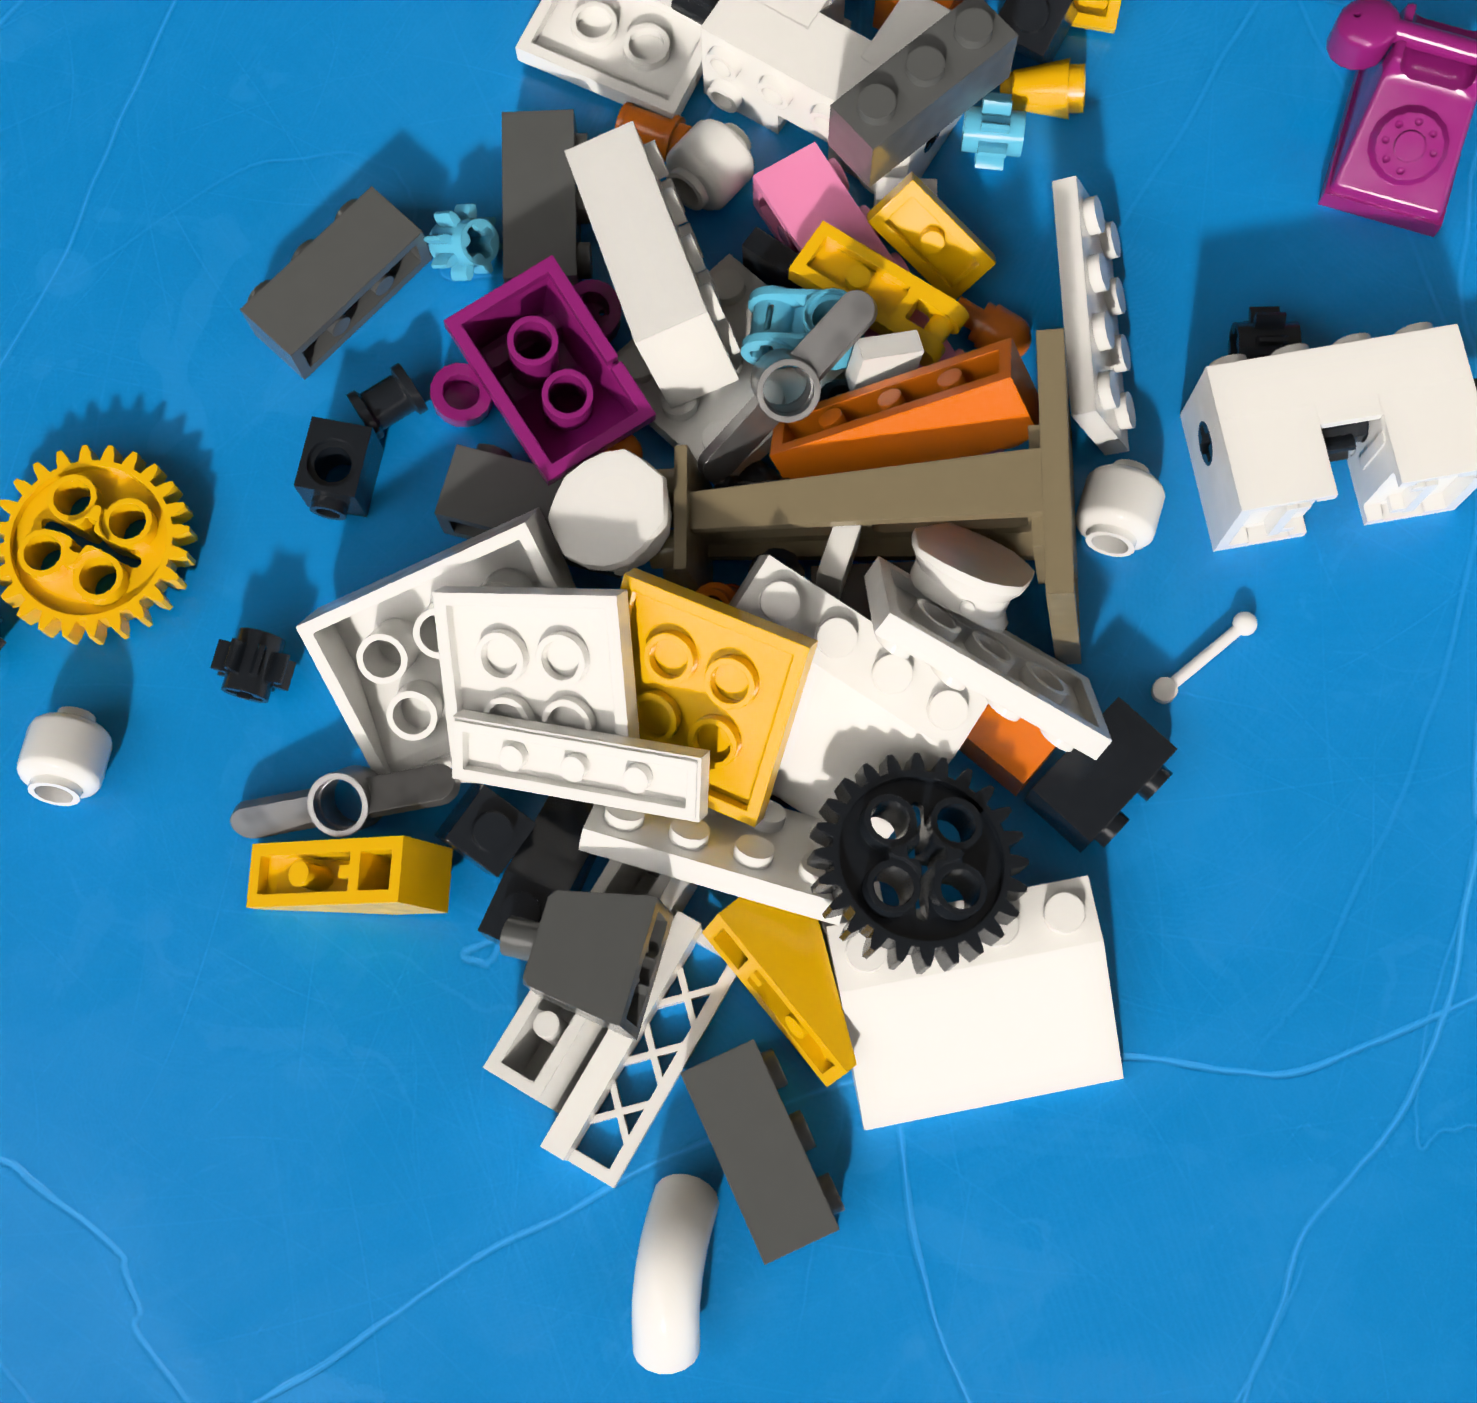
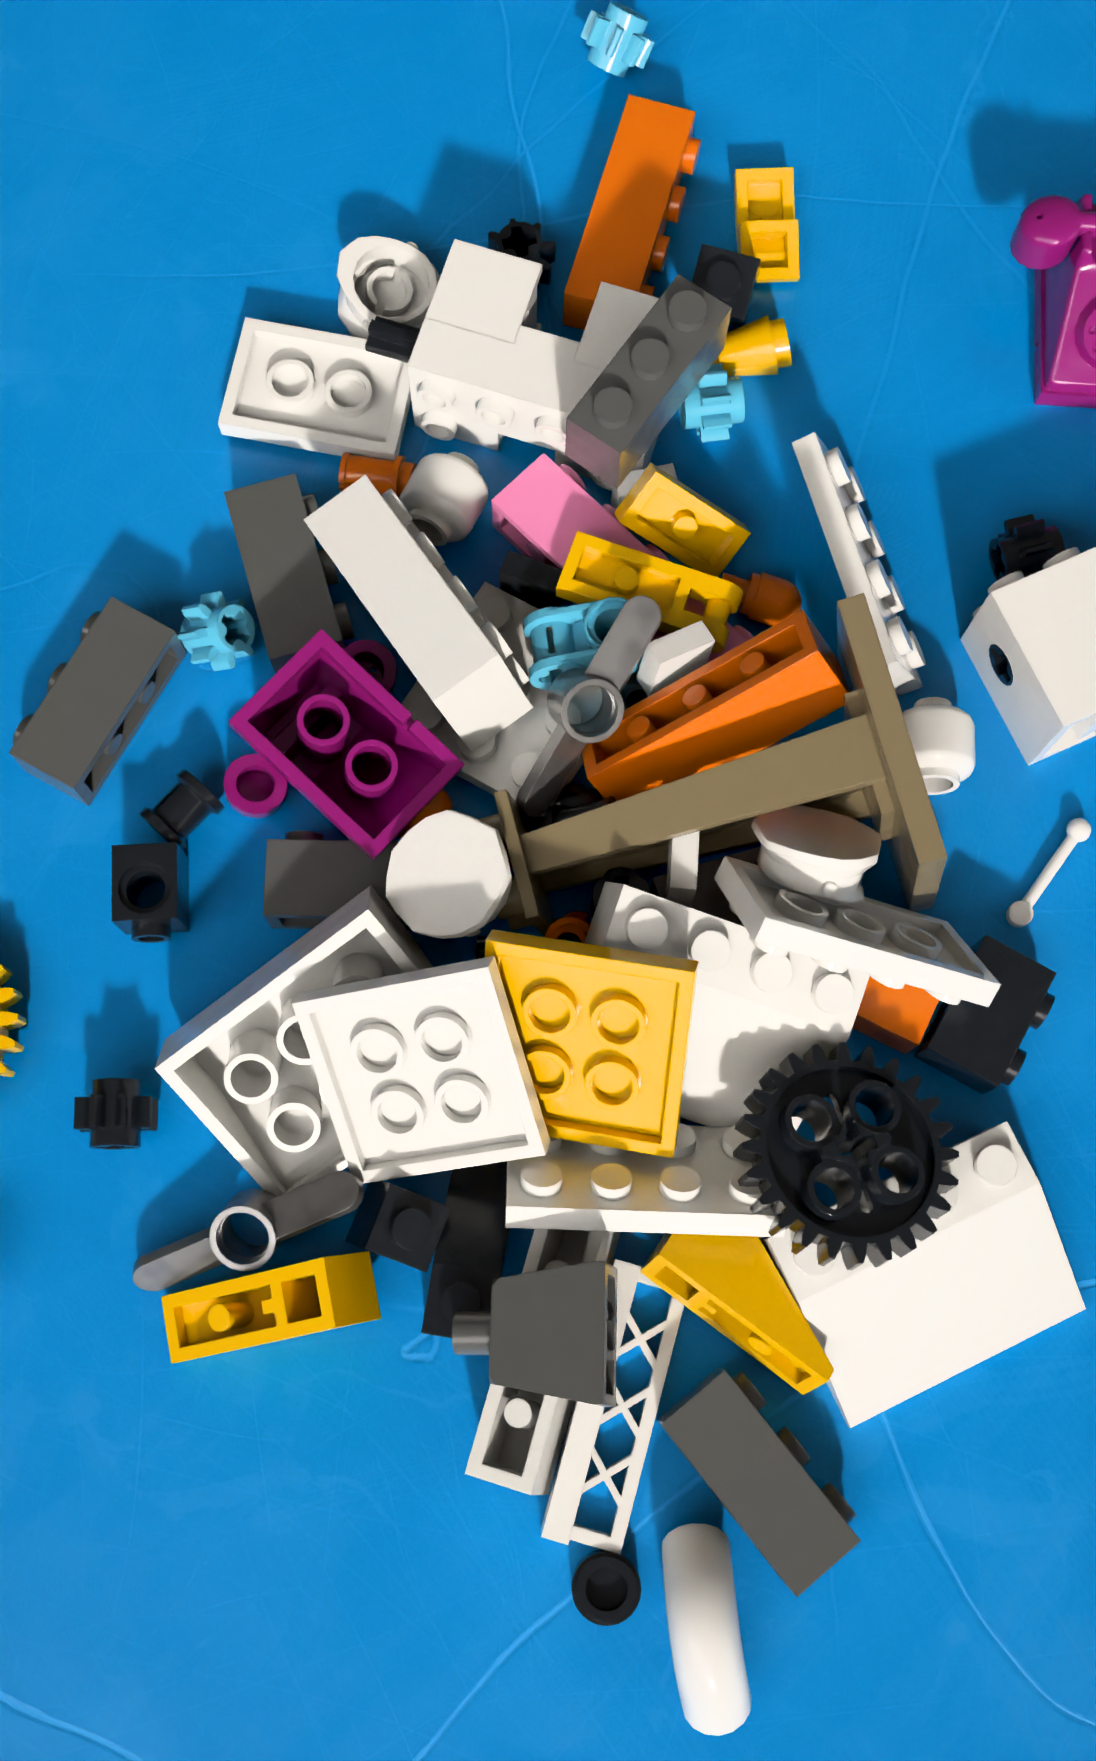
camera: 20 degrees left, 0 degrees up
(581, 765) = (486, 1141): white tile -> none
(592, 1215) = (605, 1587): none -> black tile

